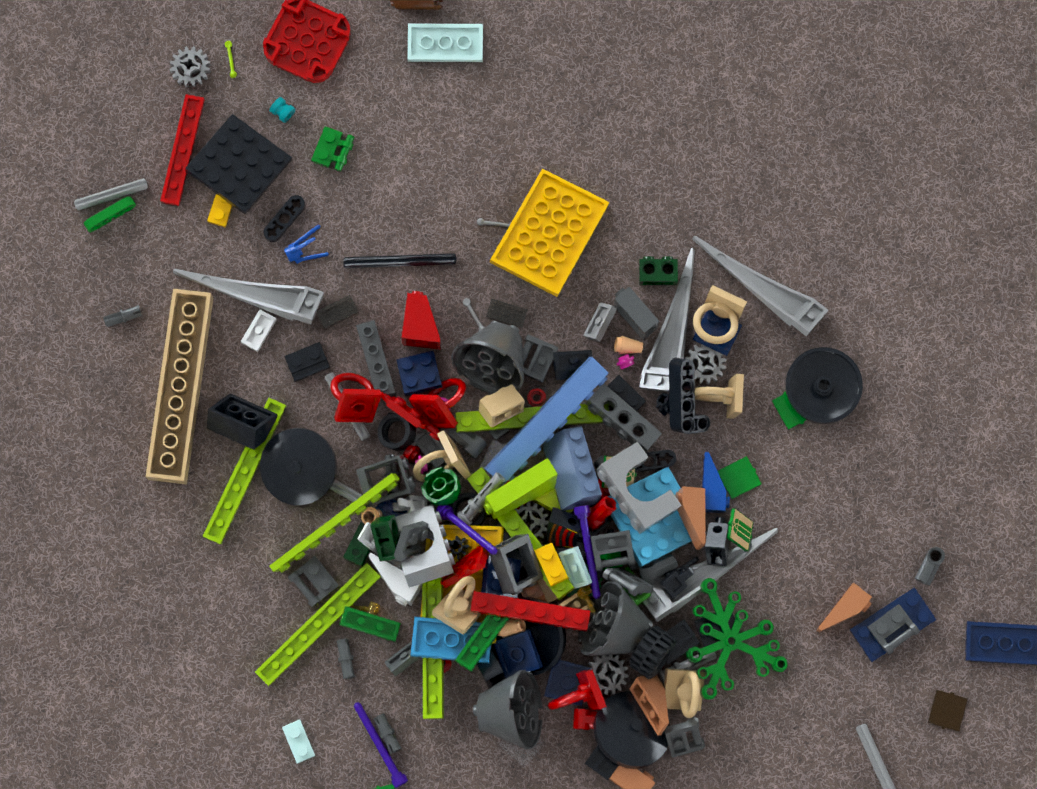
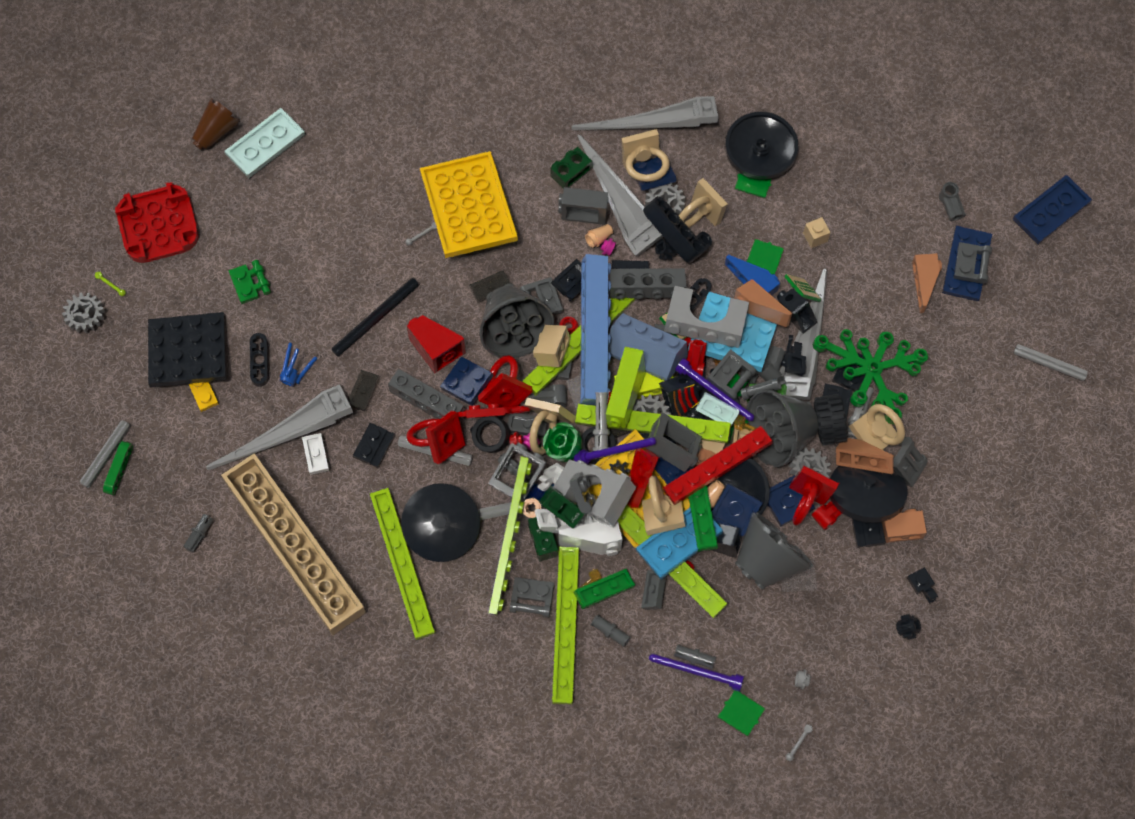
camera: 45 degrees left, 10 degrees down
(182, 150) = (133, 376): red plate -> none
(240, 421) = (365, 527): black slope -> none
(282, 109) = (187, 284): teal wheel -> none
(298, 741) = (634, 724): light aqua plate -> none
(466, 302) = (452, 304): light grey hinge -> none
(551, 564) = (699, 420): yellow plate -> none
(600, 322) = (563, 235): light grey plate -> none
(796, 495) = (816, 232): none -> tan brick
(947, 710) = (1061, 287): dark brown piece -> none

